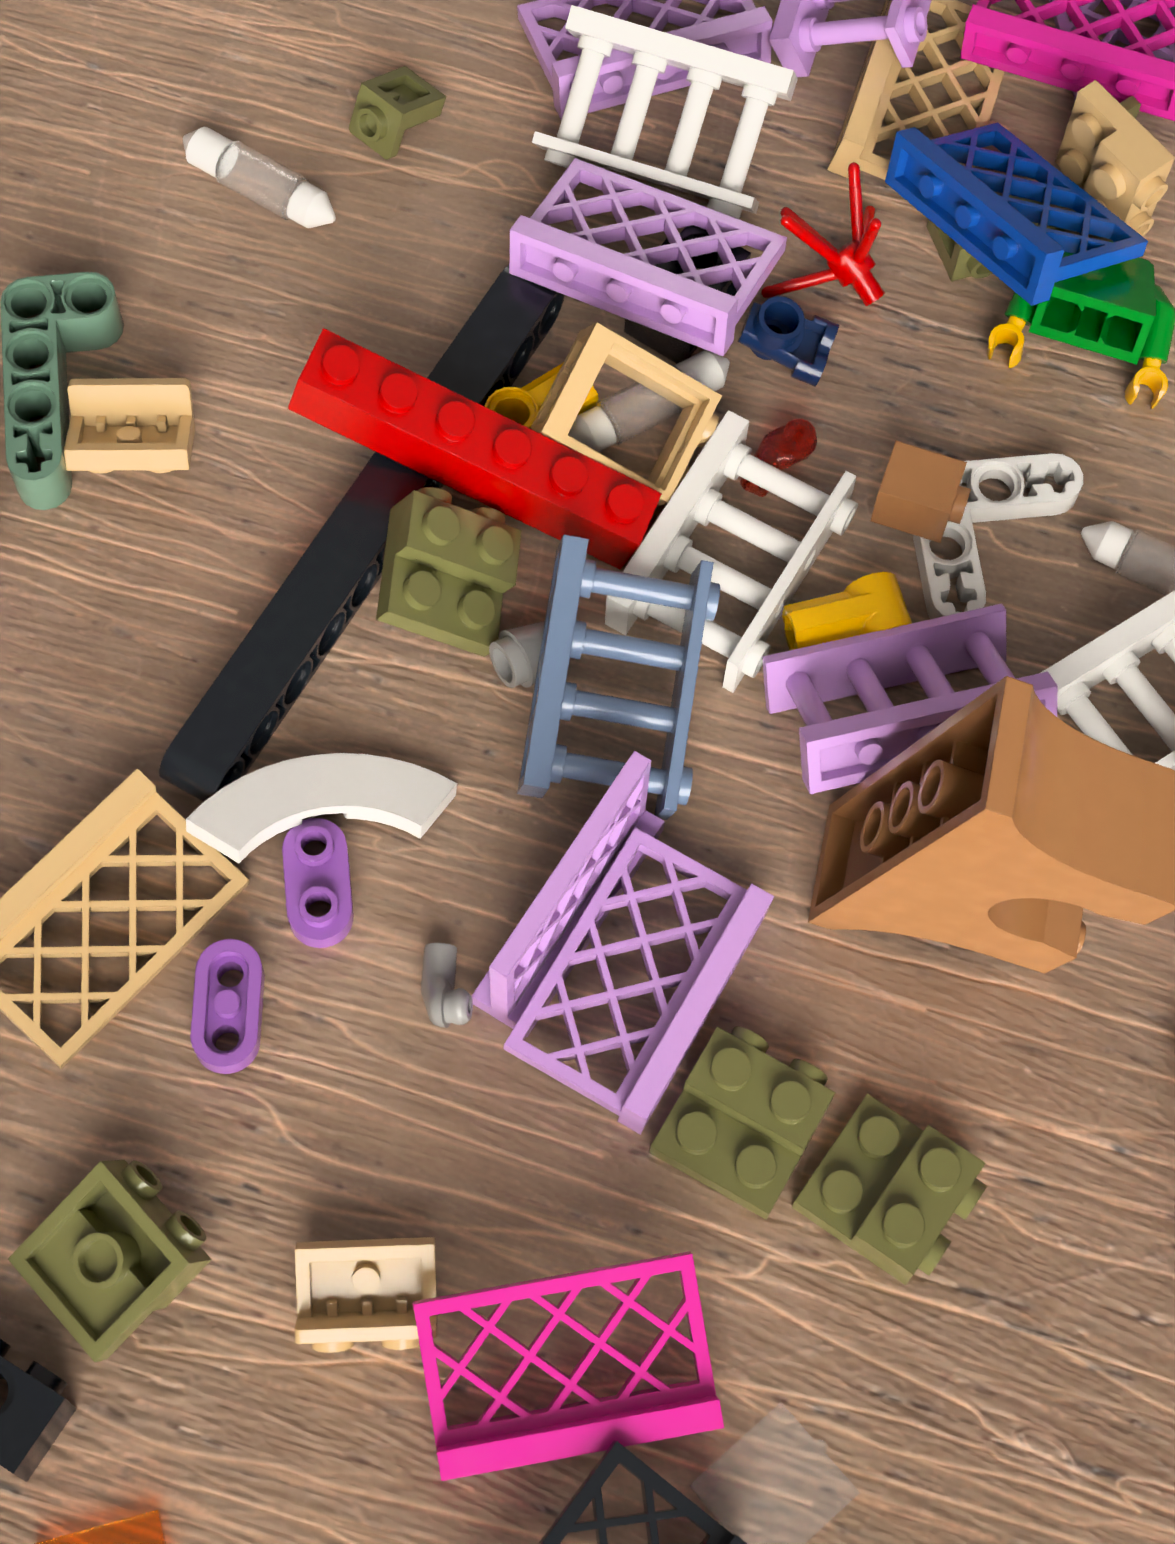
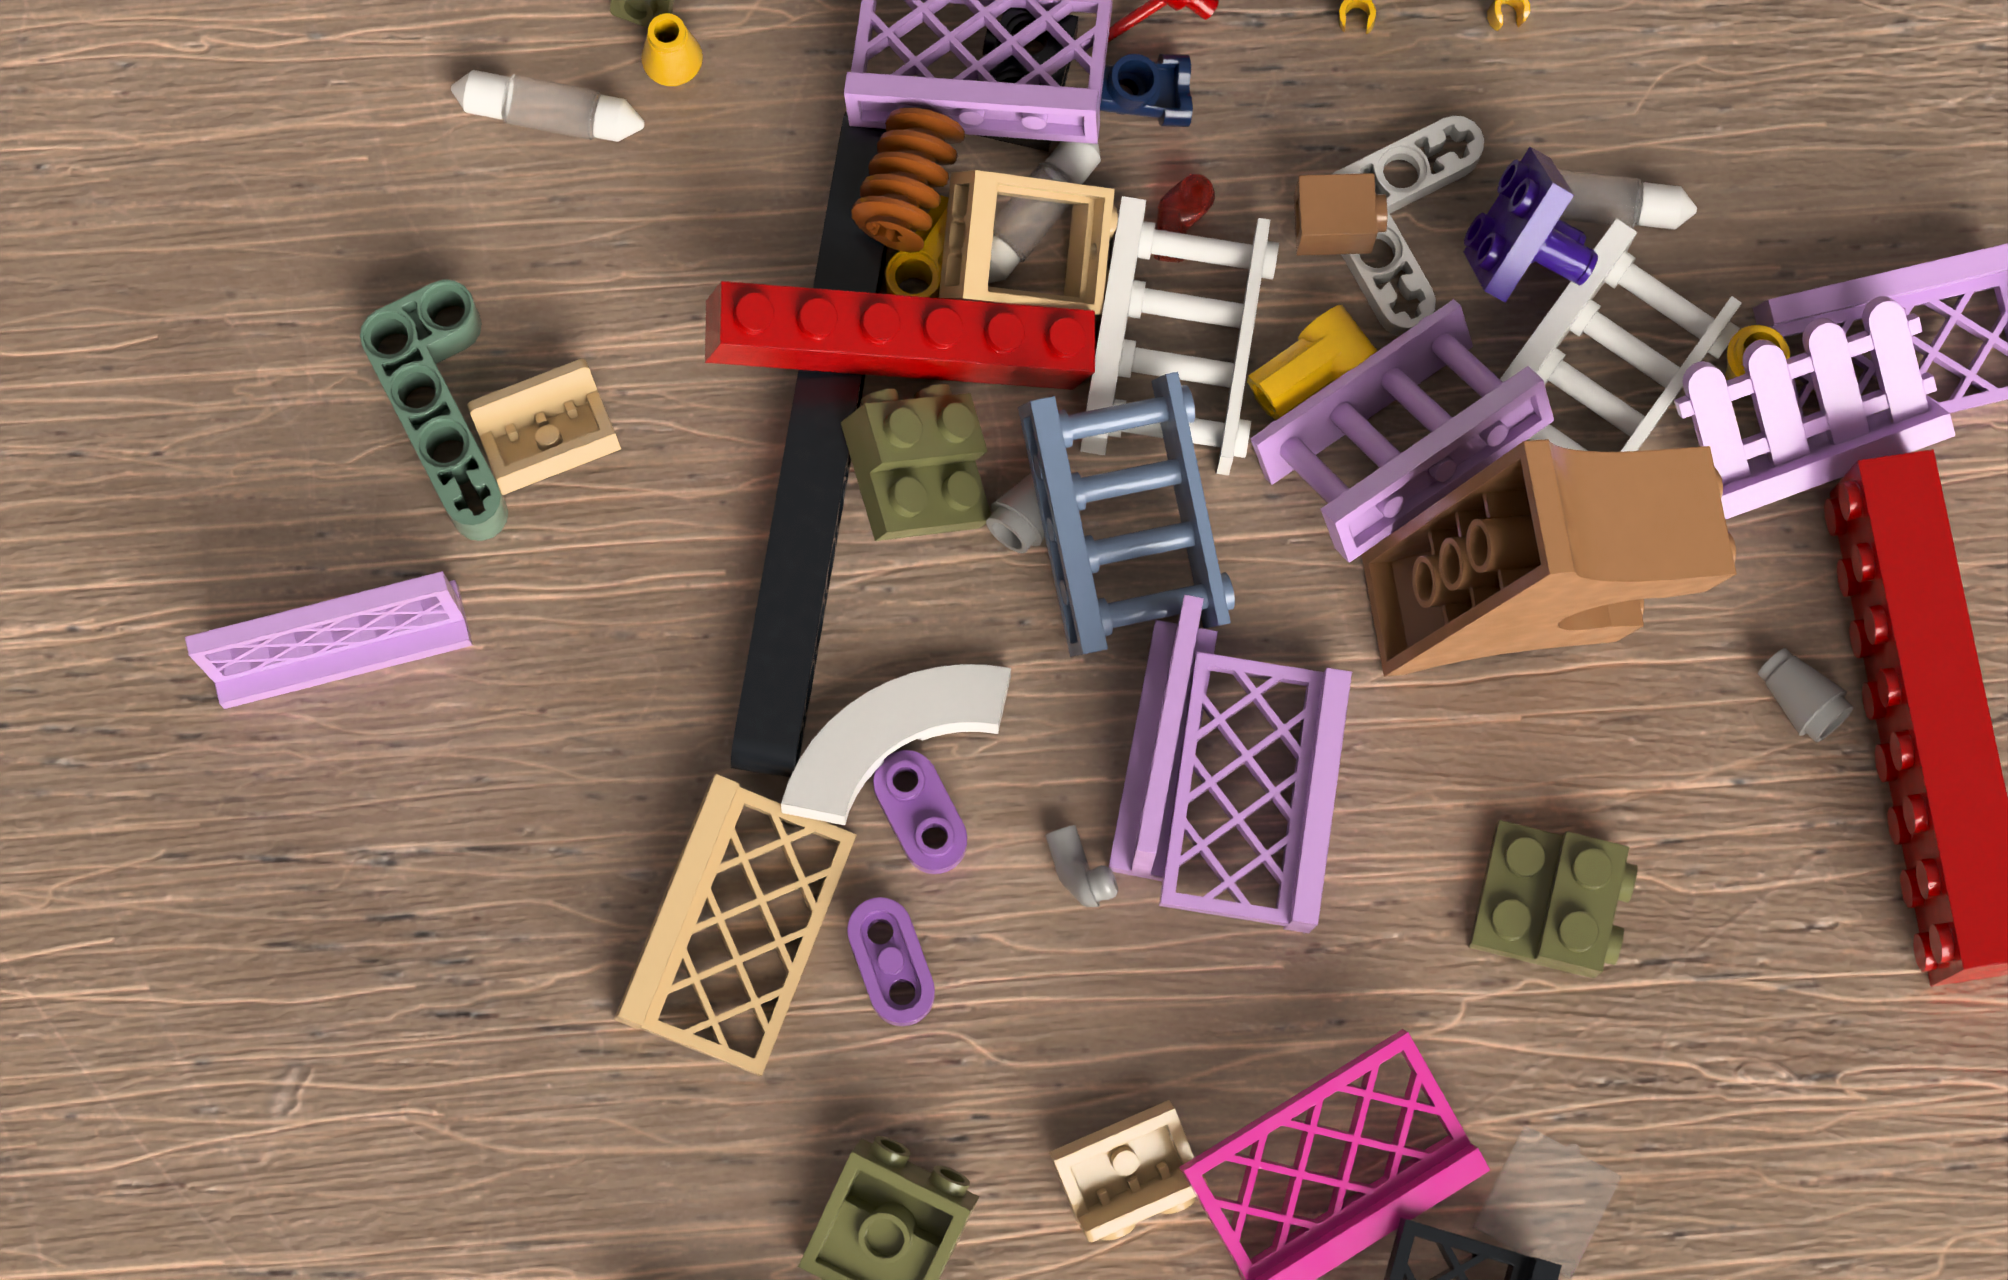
camera: 20 degrees left, 10 degrees up
(383, 168) = (670, 51): none -> yellow cone
(538, 321) = (902, 174): none -> dark orange piece
(743, 1119) = (1398, 886): olive plate -> none
(1094, 562) = (1526, 229): none -> dark purple plate

